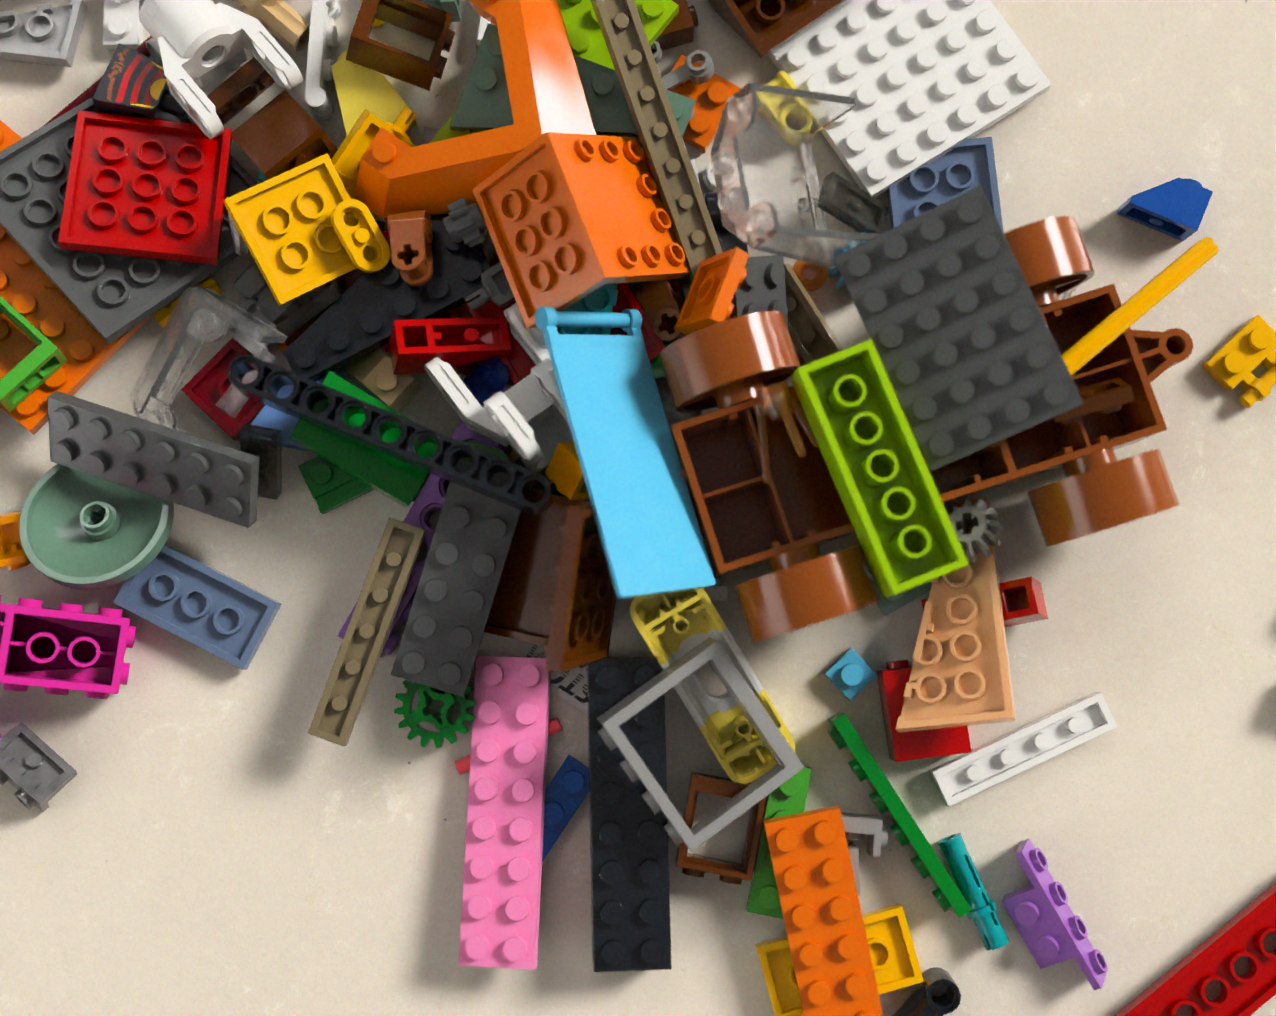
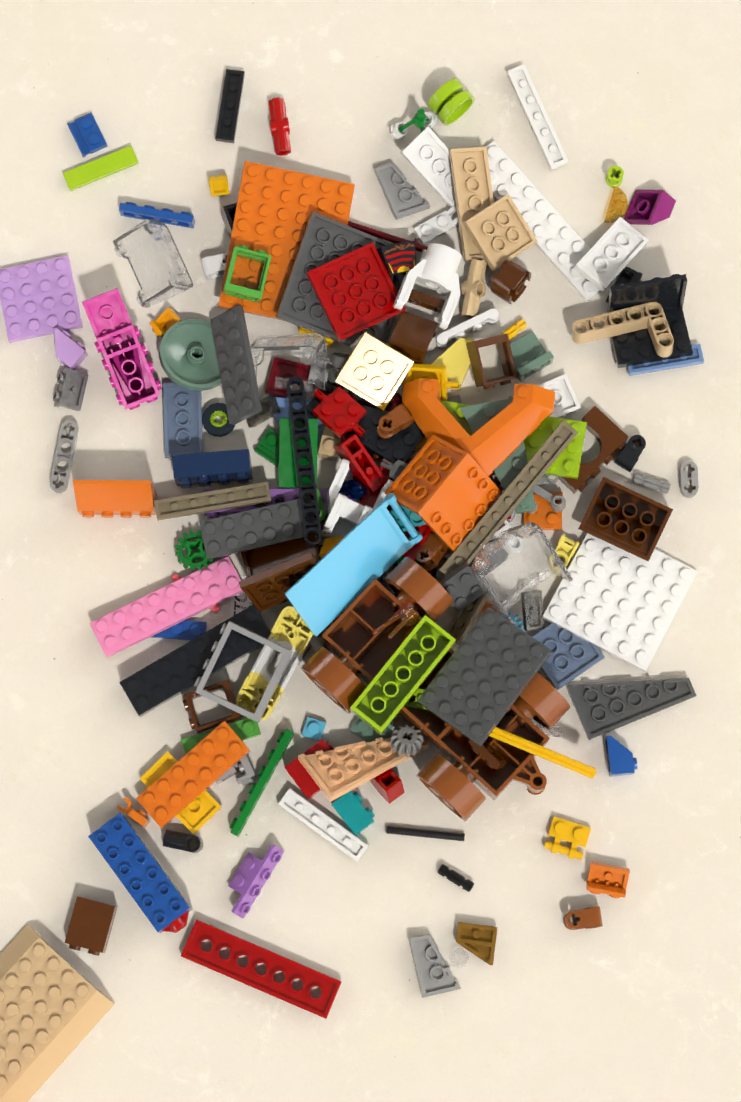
camera: 60 degrees right, 5 degrees down
(144, 837) = (64, 456): none -> light grey beam
(221, 557) = (209, 419): none -> black bush
(261, 800) = (115, 498): none -> orange slope
(308, 600) = (212, 467): none -> dark blue brick
(339, 328) = (339, 412): none -> red plate
(362, 235) = (386, 397): yellow plate -> none
(465, 222) = (417, 439): dark grey gear -> none
(713, 291) = (446, 563): orange plate -> none
(972, 889) = (245, 837): teal pin -> none
(1042, 685) = (353, 812): none -> teal brick
(1082, 148) = (621, 703): none -> dark grey wing
(1123, 586) = (425, 833): none -> black bar
(1224, 577) = (455, 877): none -> black axle

